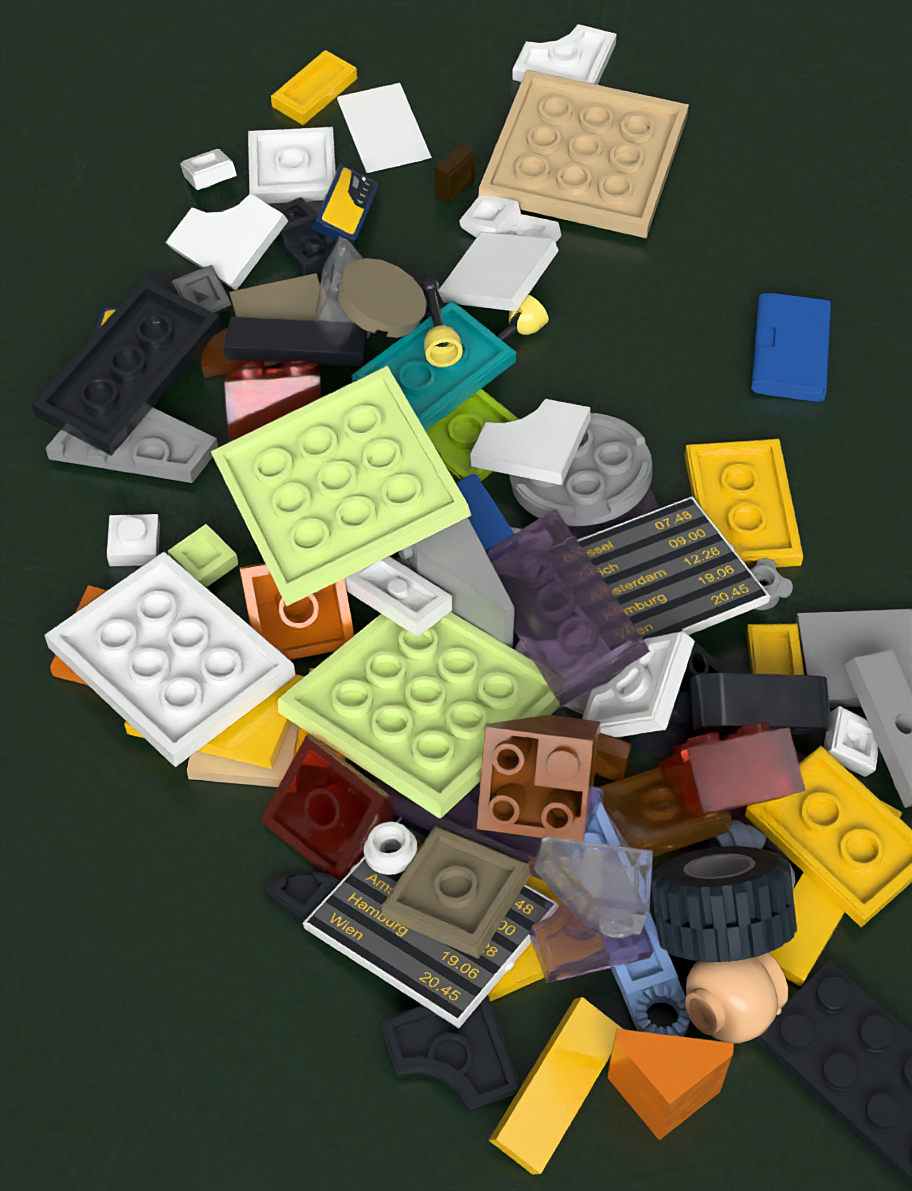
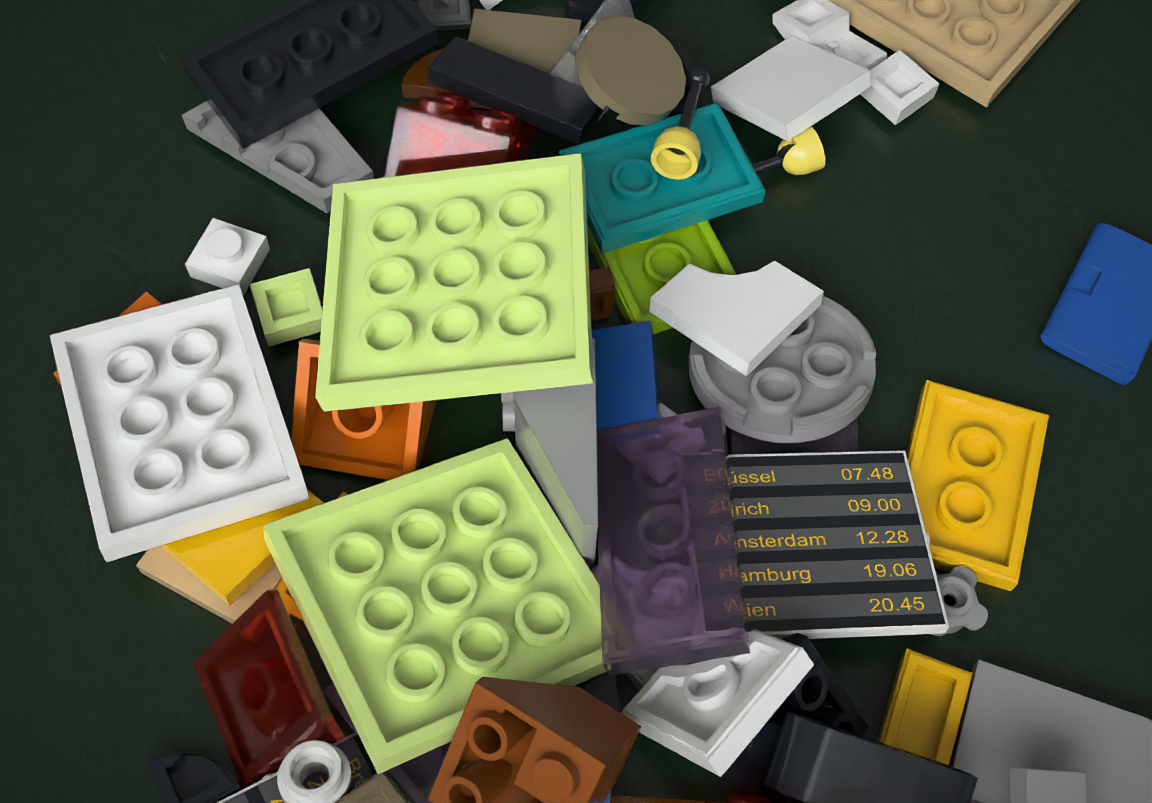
camera: 20 degrees right, 5 degrees up
(400, 595) = (482, 448): white plate -> none
(578, 244) = (899, 87): none -> white plate
(612, 757) = (649, 764): reddish brown tile -> none

